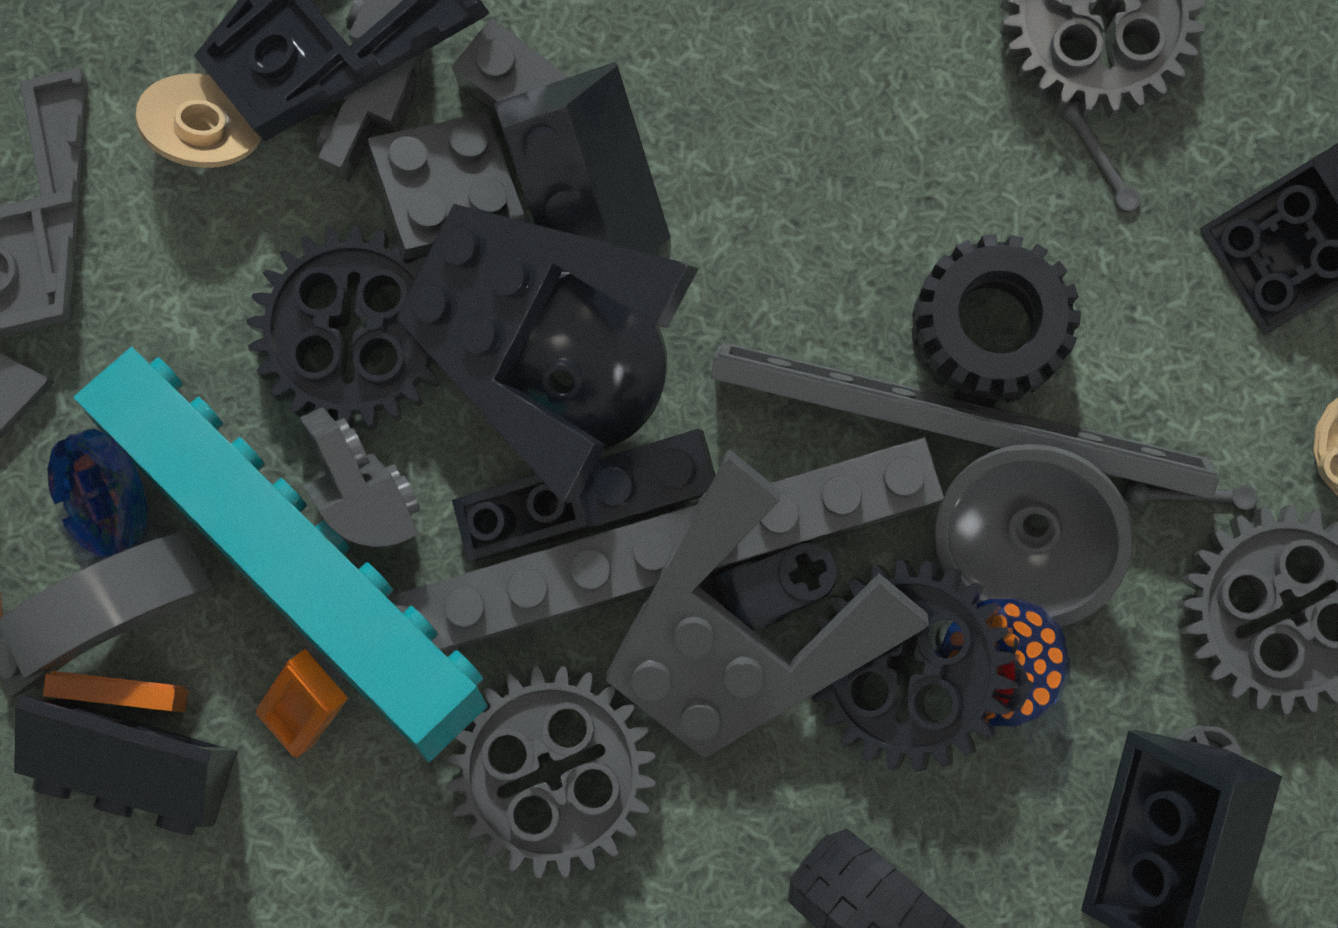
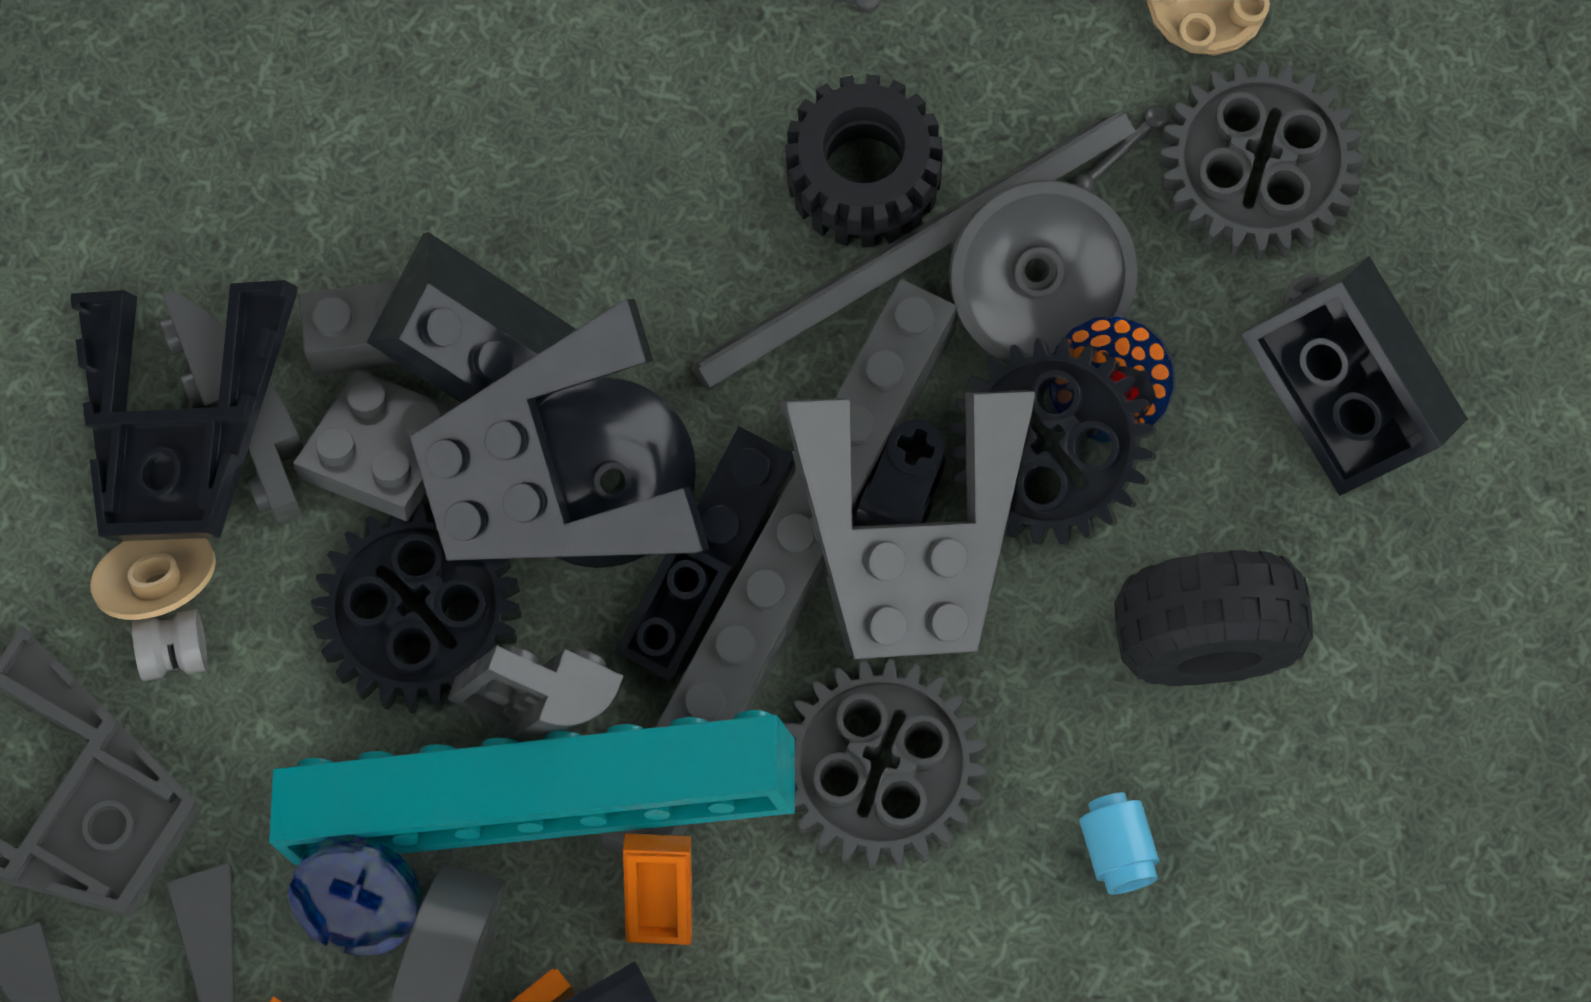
camera: 45 degrees left, 10 degrees down
(162, 184) = (170, 645): none -> light grey wheel

